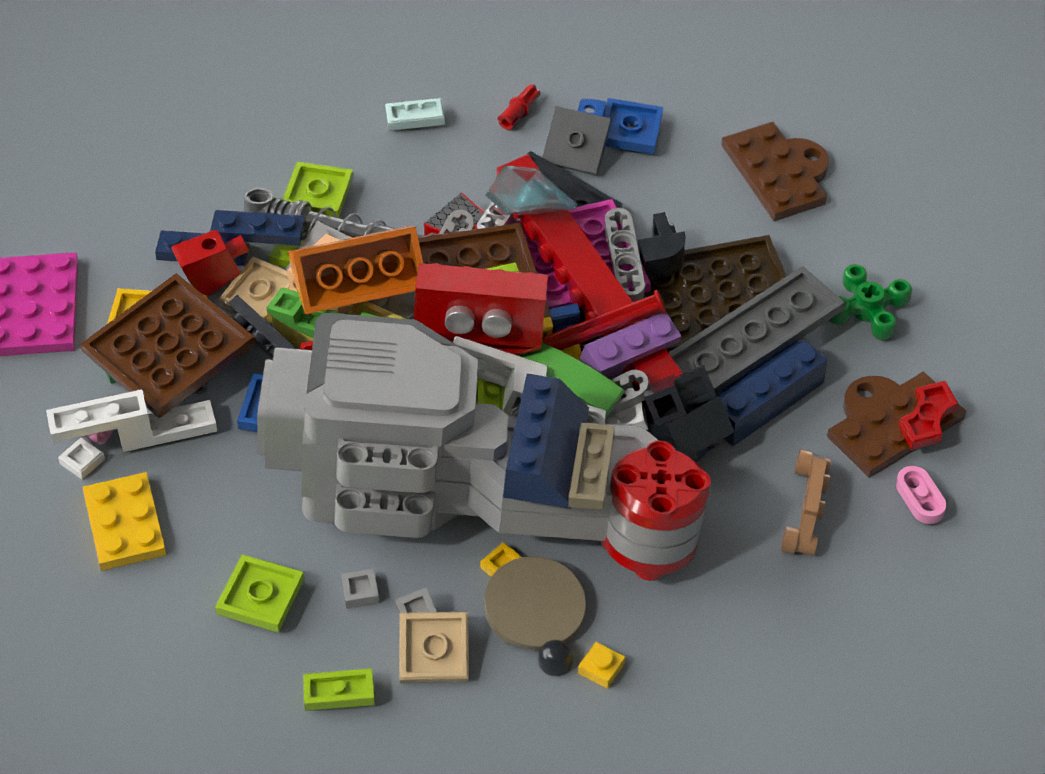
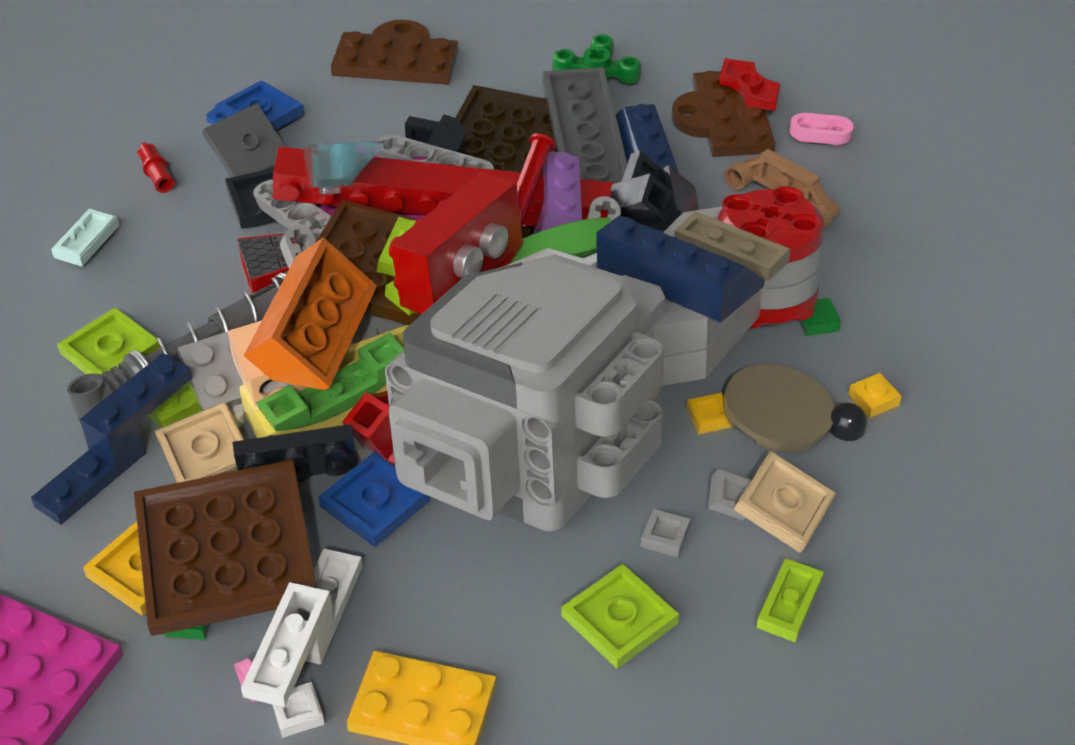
camera: 60 degrees left, 5 degrees down
(209, 260) = (136, 458): red torso -> none
(668, 591) = (823, 320): none -> green tile

